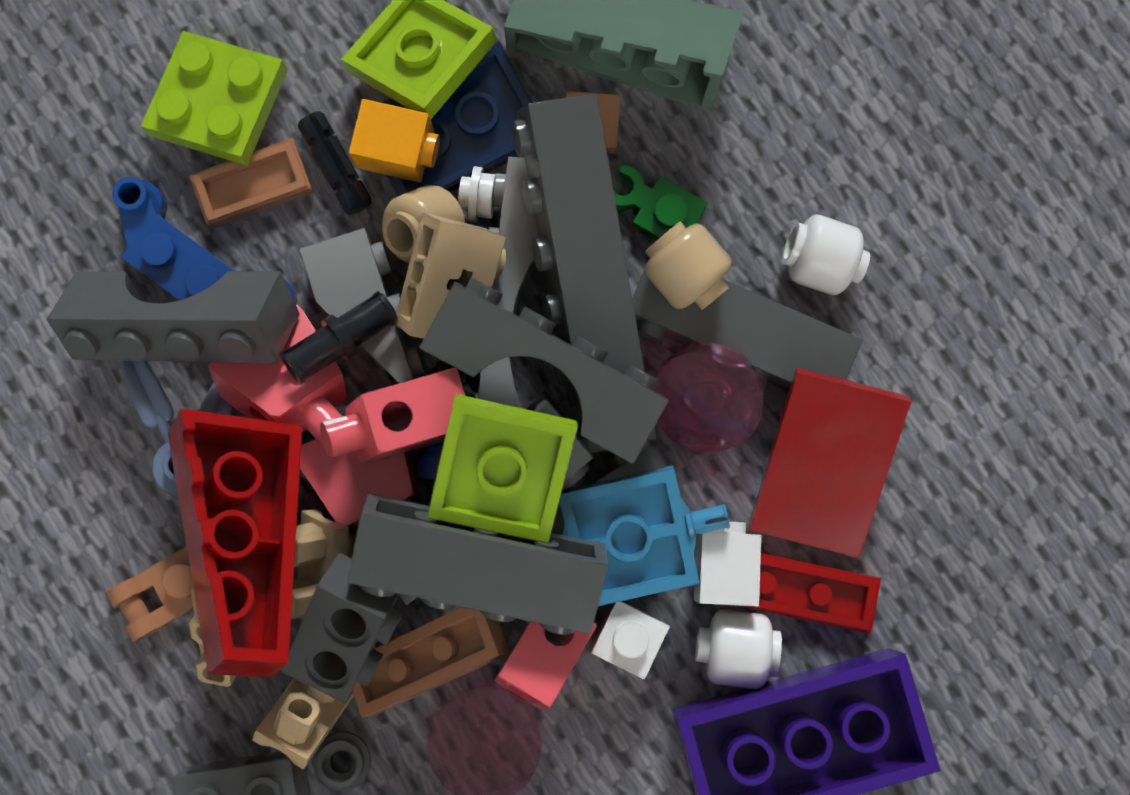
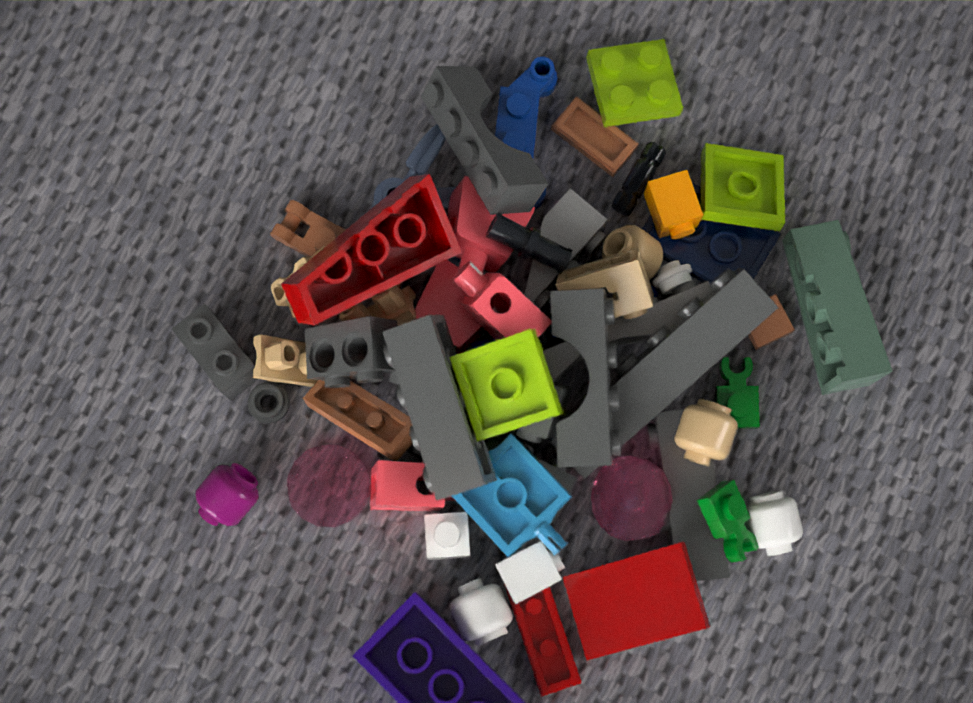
camera: 65 degrees right, 5 degrees down
(793, 302) = (726, 517): none -> green plate

